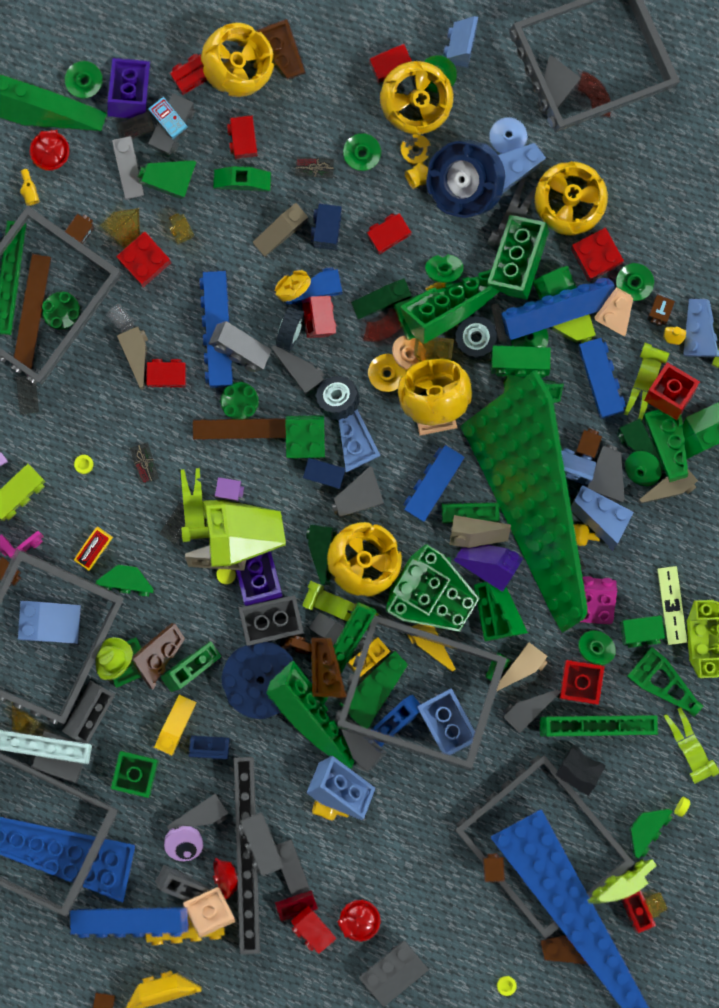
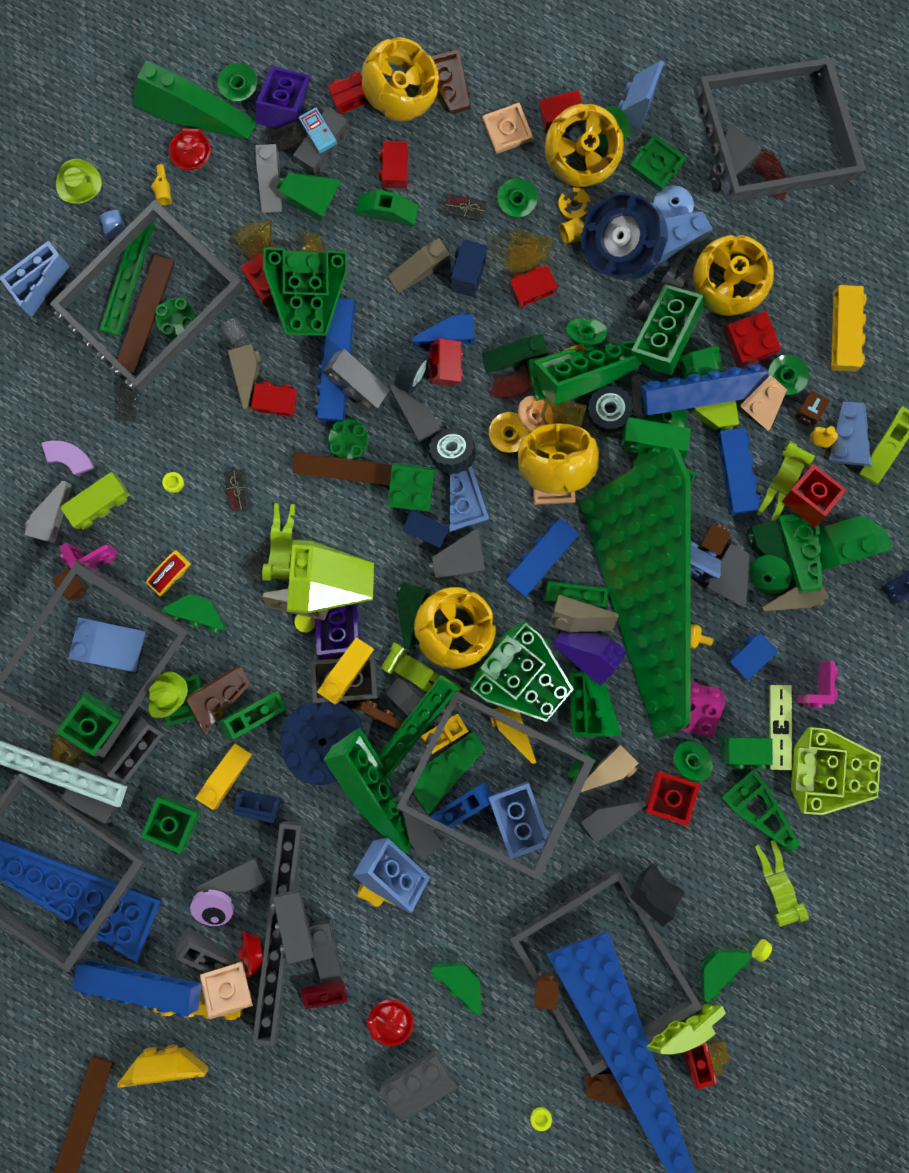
camera: 15 degrees right, 0 degrees up
(50, 692) = (88, 723): none -> green brick
(80, 228) = (209, 234): reddish brown brick -> none
(181, 268) = (305, 287): none -> green wedge
(229, 489) = (322, 531): medium lavender brick -> none
(273, 611) = (345, 671): none -> yellow slope
(292, 286) = (422, 326): yellow tile -> none
(313, 929) = (337, 1026): red brick -> none
(325, 670) = (393, 744): reddish brown wing -> none
(343, 85) = (507, 128): none -> light nougat tile
(378, 200) = (526, 250): none -> clear yellow slope
(417, 876) = (461, 983): none -> green slope
(487, 99) = (657, 162): none -> green plate
(598, 725) = (682, 847): green slope -> none
(601, 515) = (719, 619): medium blue wedge -> none
(637, 545) = (751, 656): none -> blue brick
(683, 230) = (848, 328): none -> yellow brick
(699, 576) = (826, 687): none -> dark pink bracket

